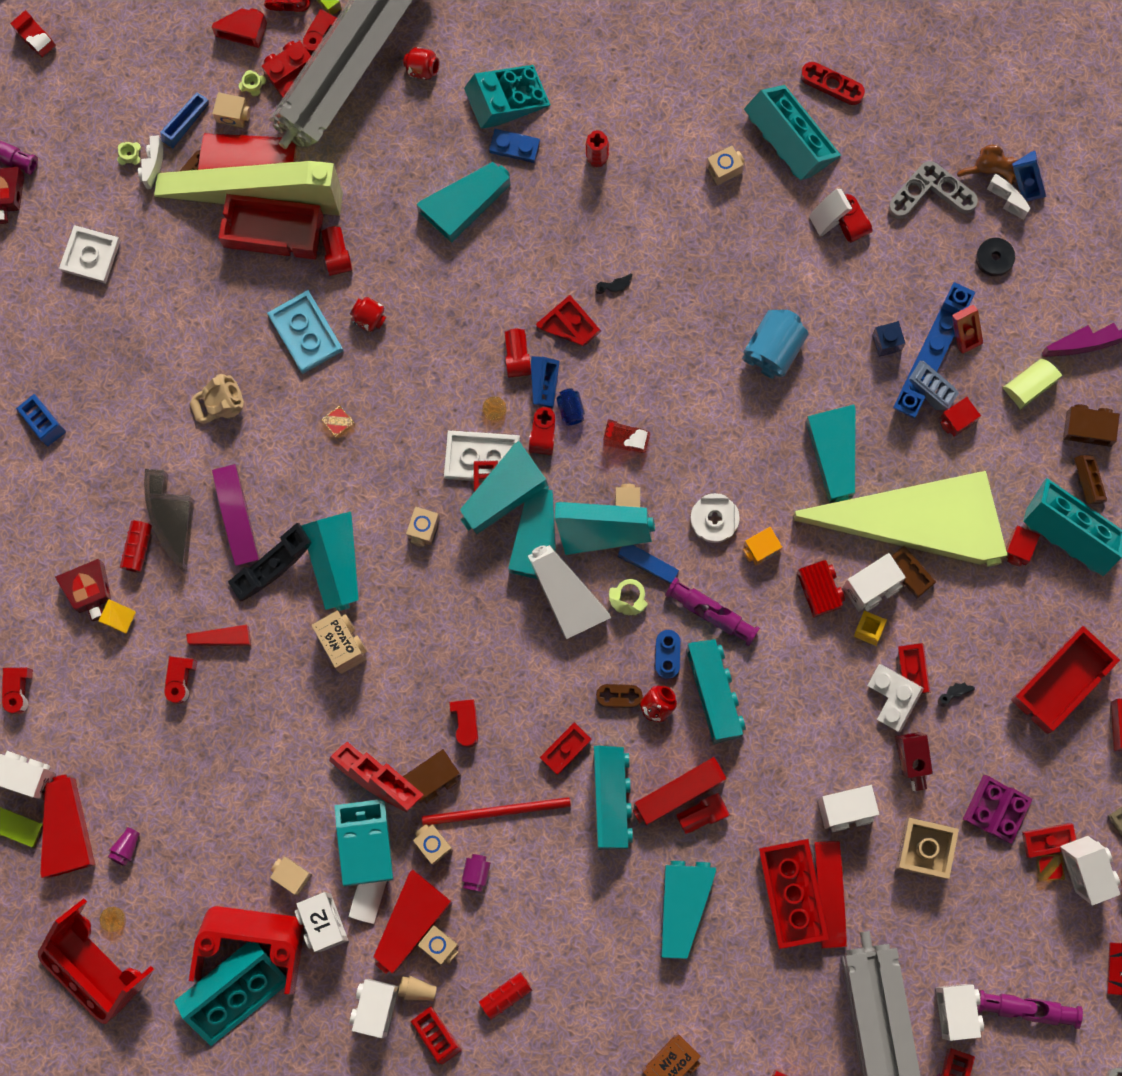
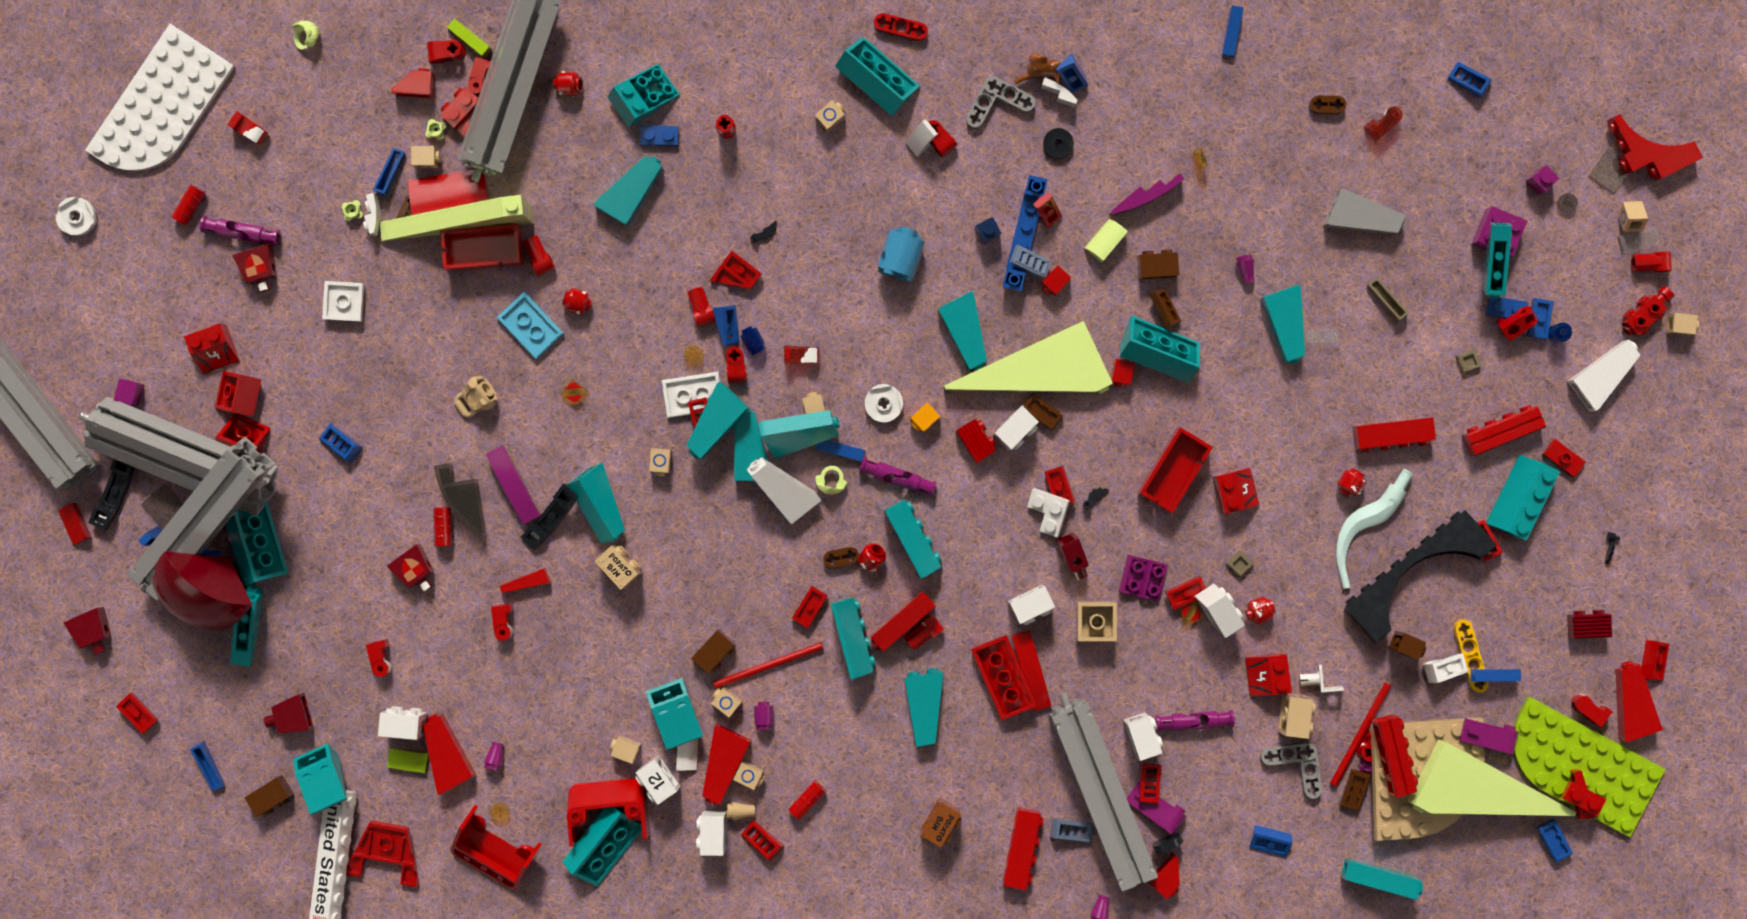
camera: 15 degrees left, 10 degrees up
(117, 616) = (442, 584): yellow slope -> none
(376, 778) = (671, 663): red slope -> none
(467, 722) = (732, 609): red leg -> none
(667, 654) = (870, 517): blue plate -> none
(870, 628) = (1020, 462): yellow slope -> none

